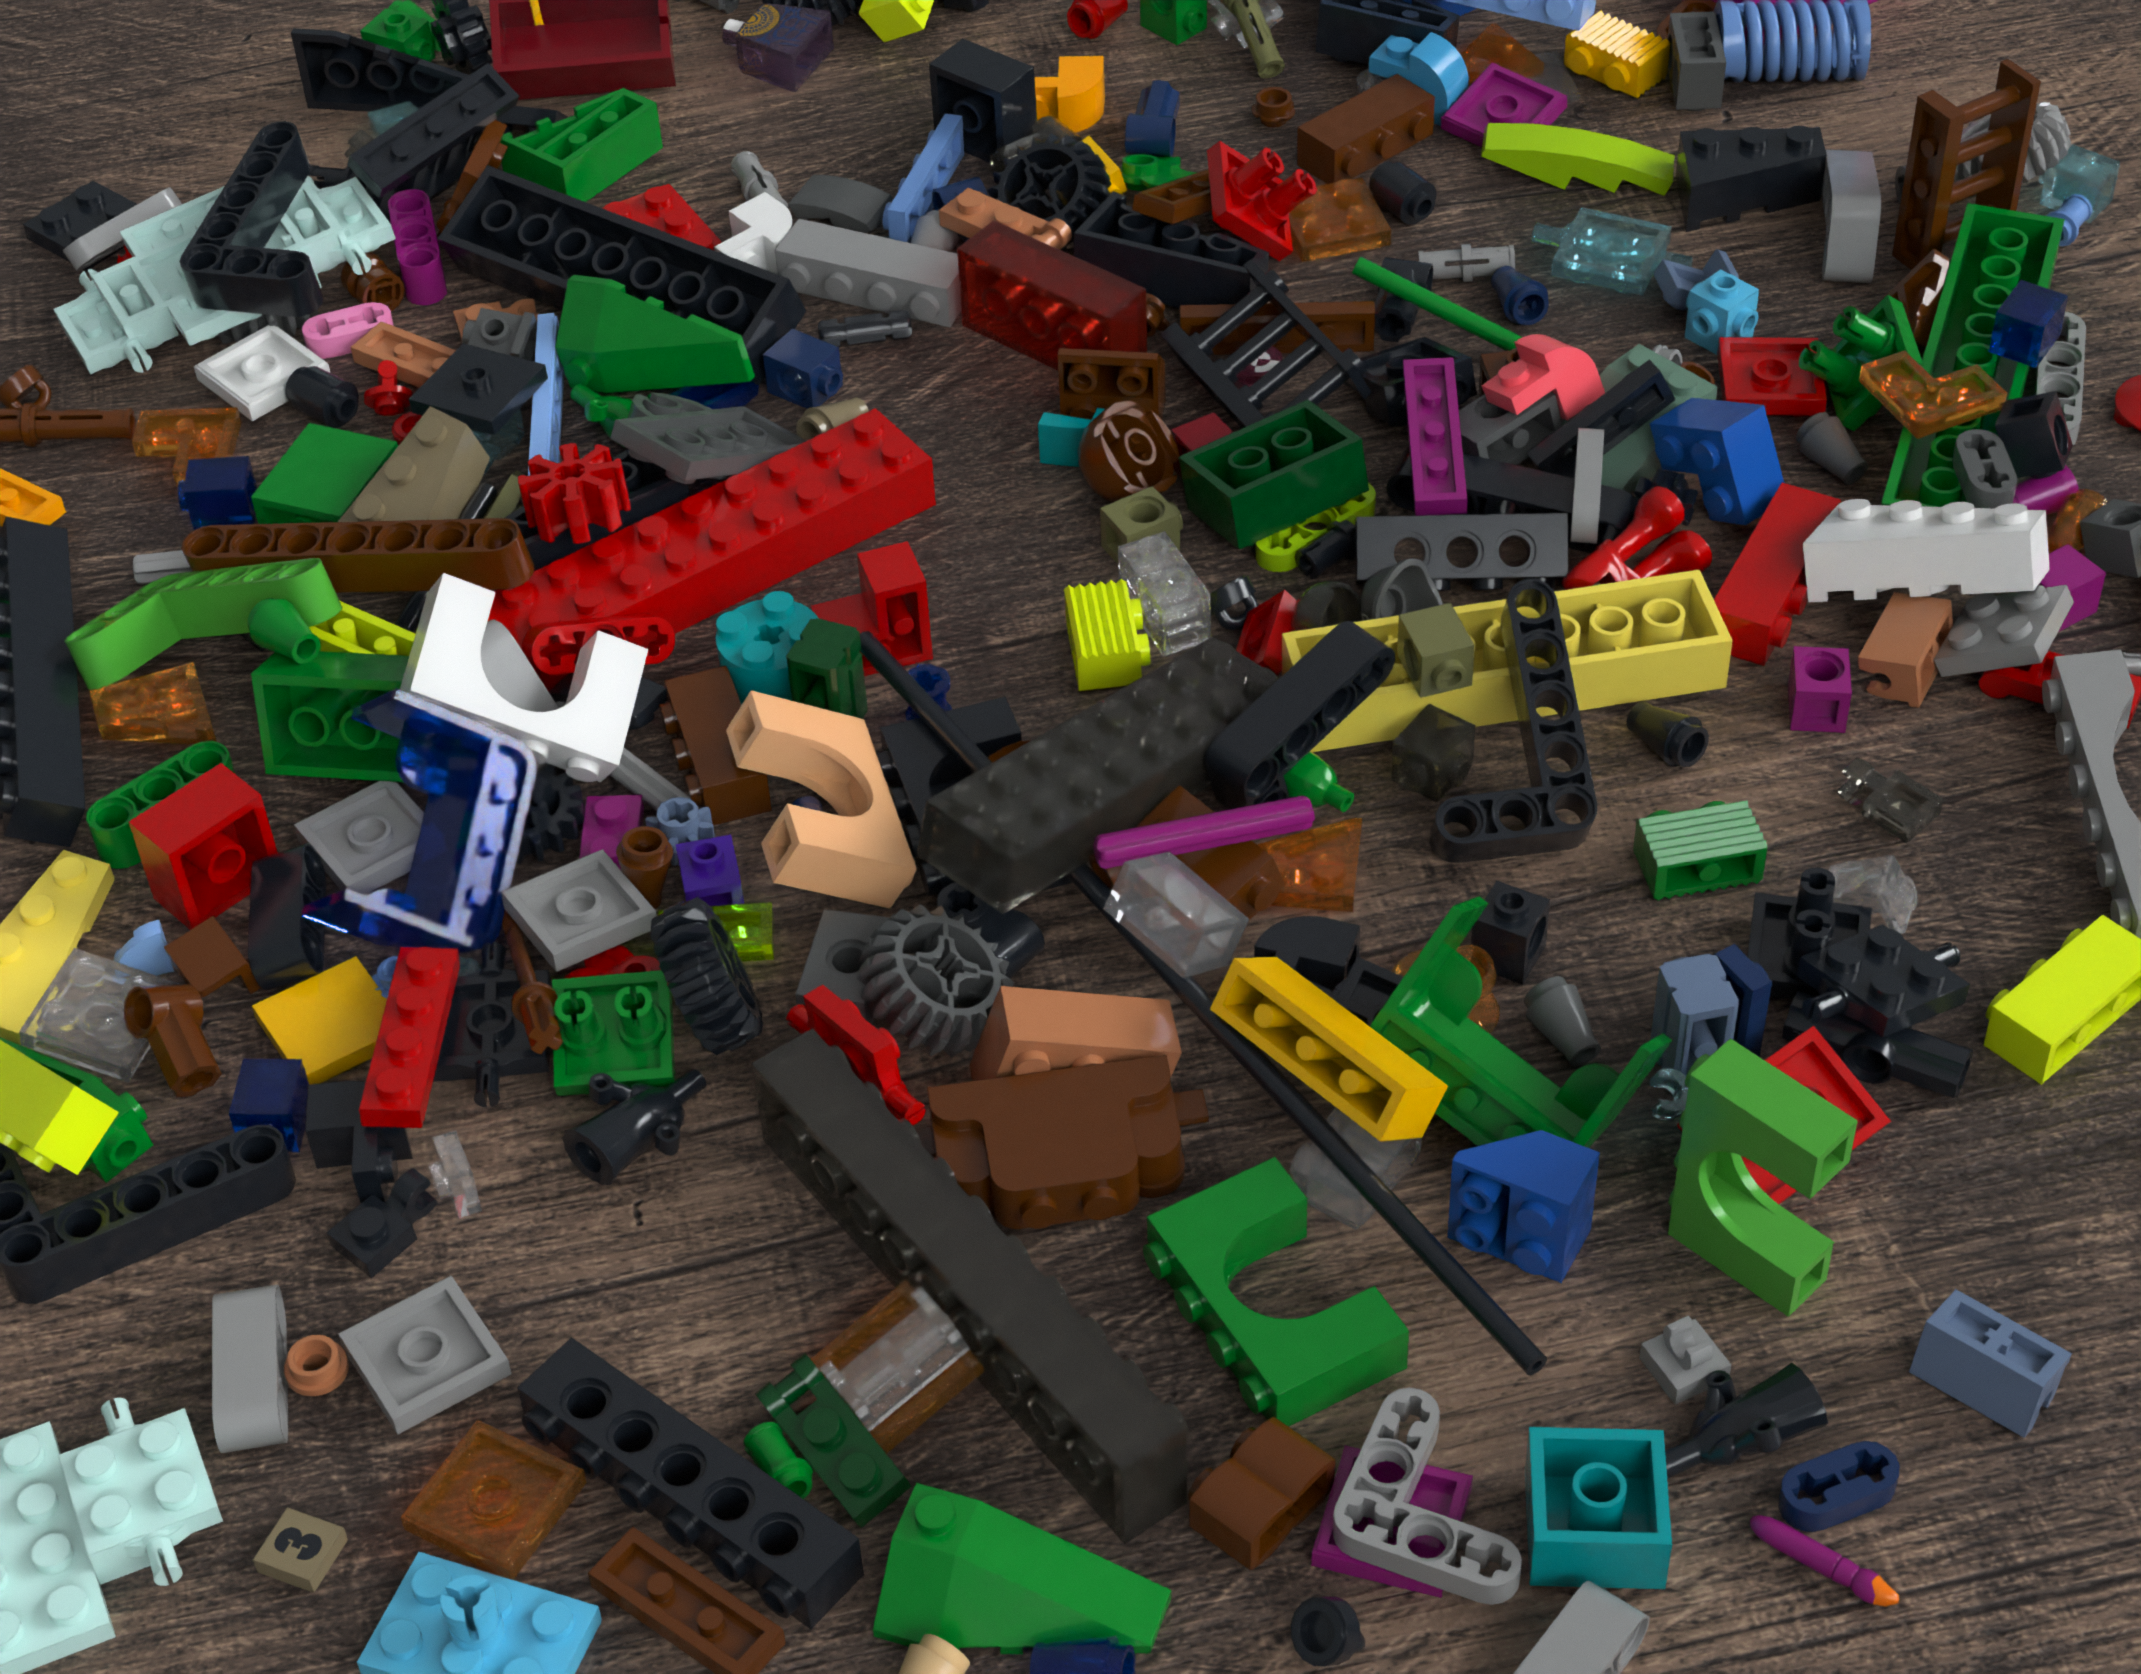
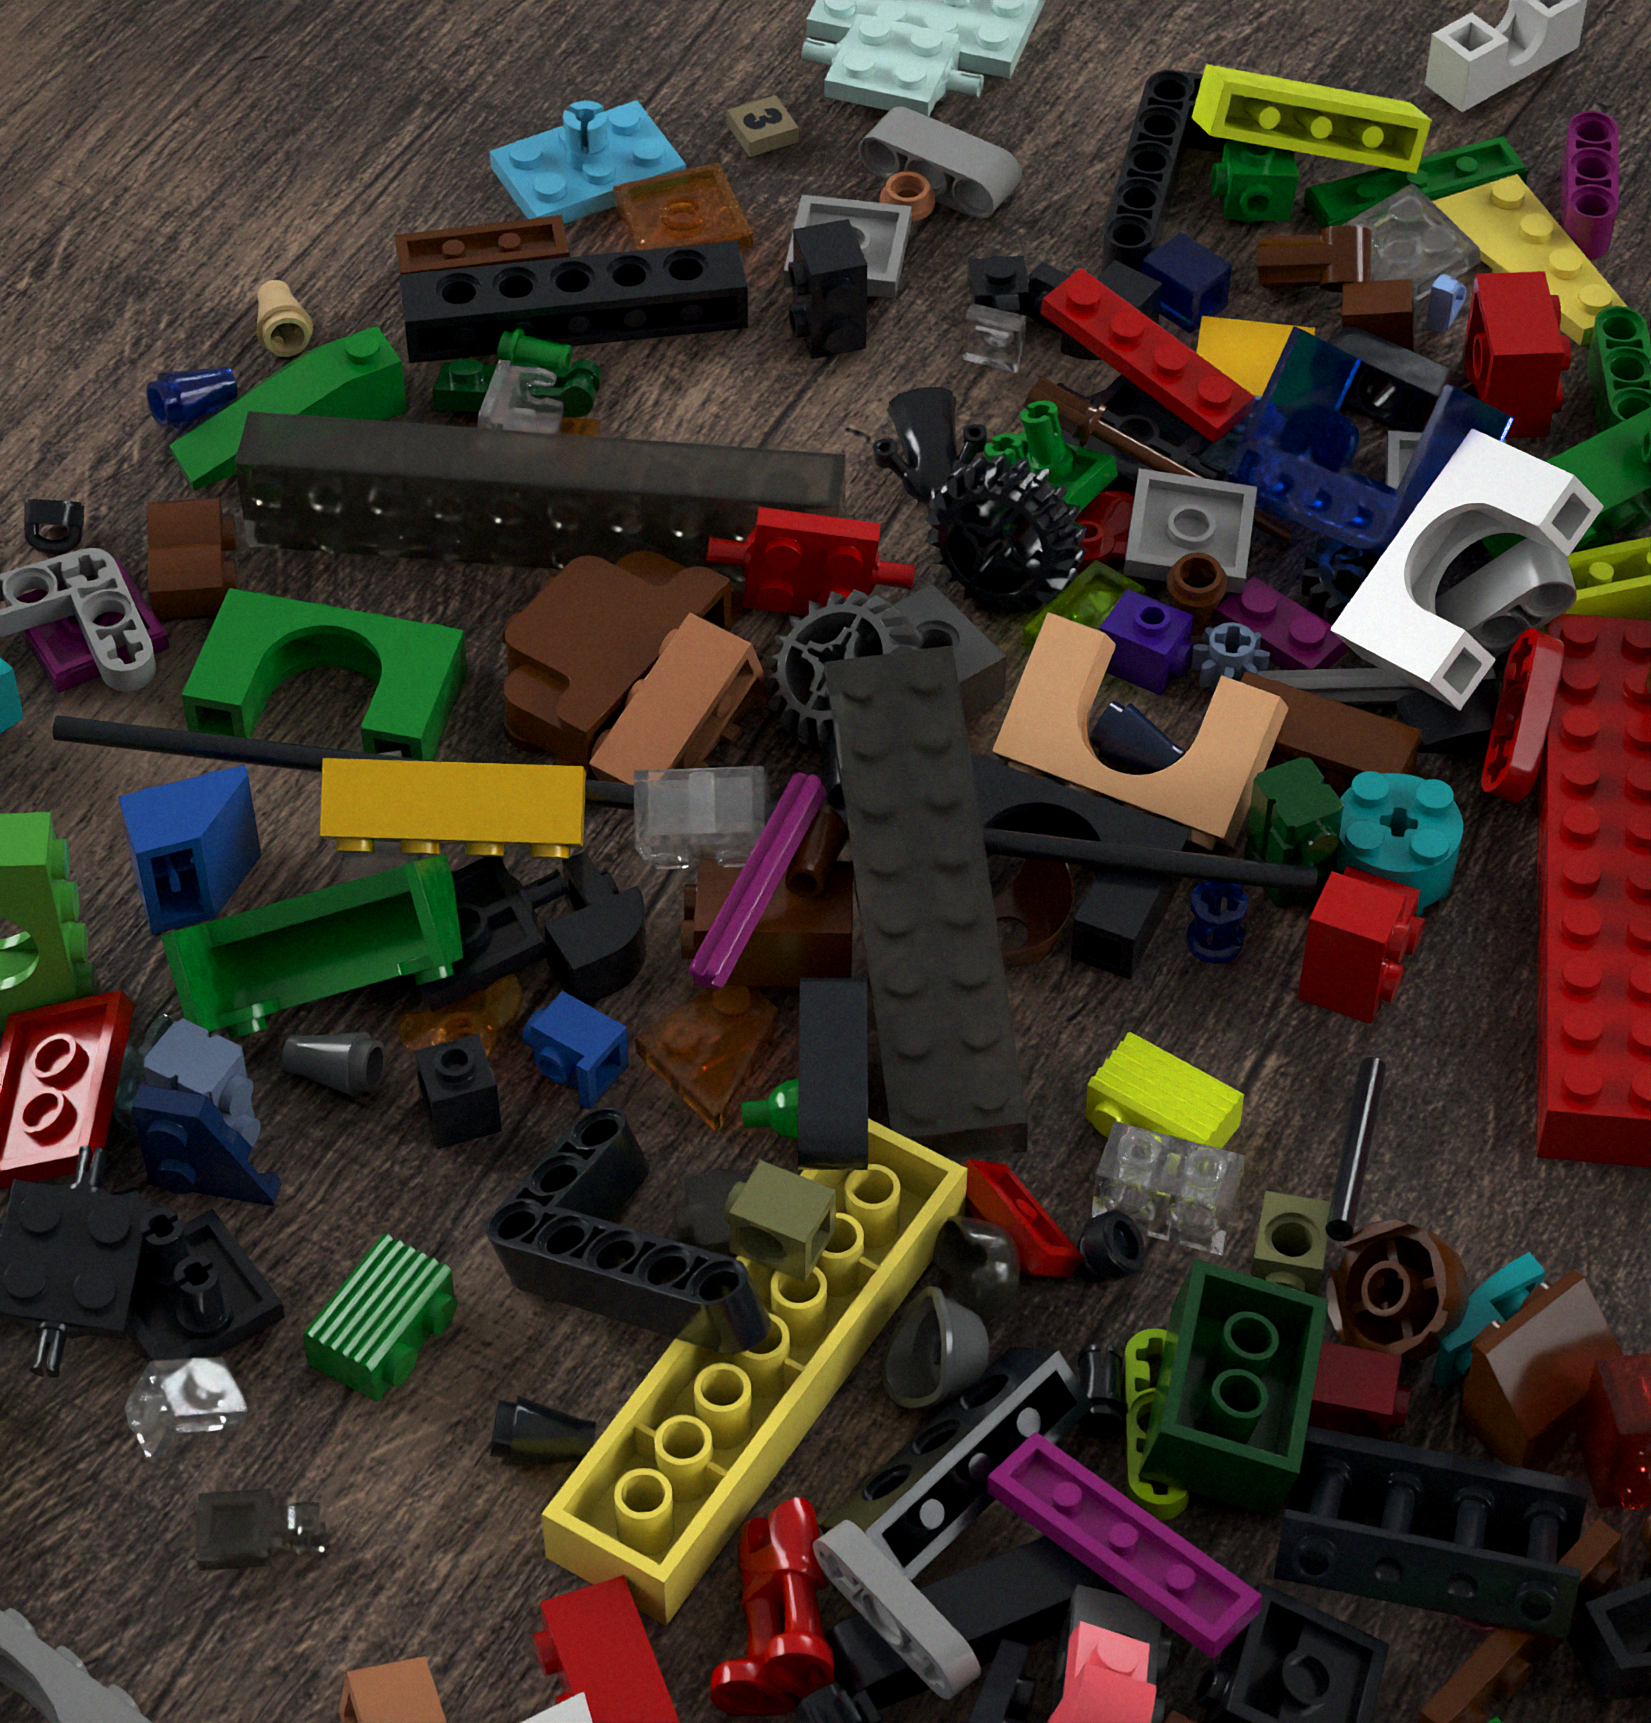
camera: 130 degrees right, 5 degrees up
(521, 1279) = (828, 289): none -> black brick
(1040, 534) = (1355, 1149): none -> black piece
(1400, 907) = (577, 1047): none -> blue brick
(1819, 689) = (434, 1580): magenta brick -> none

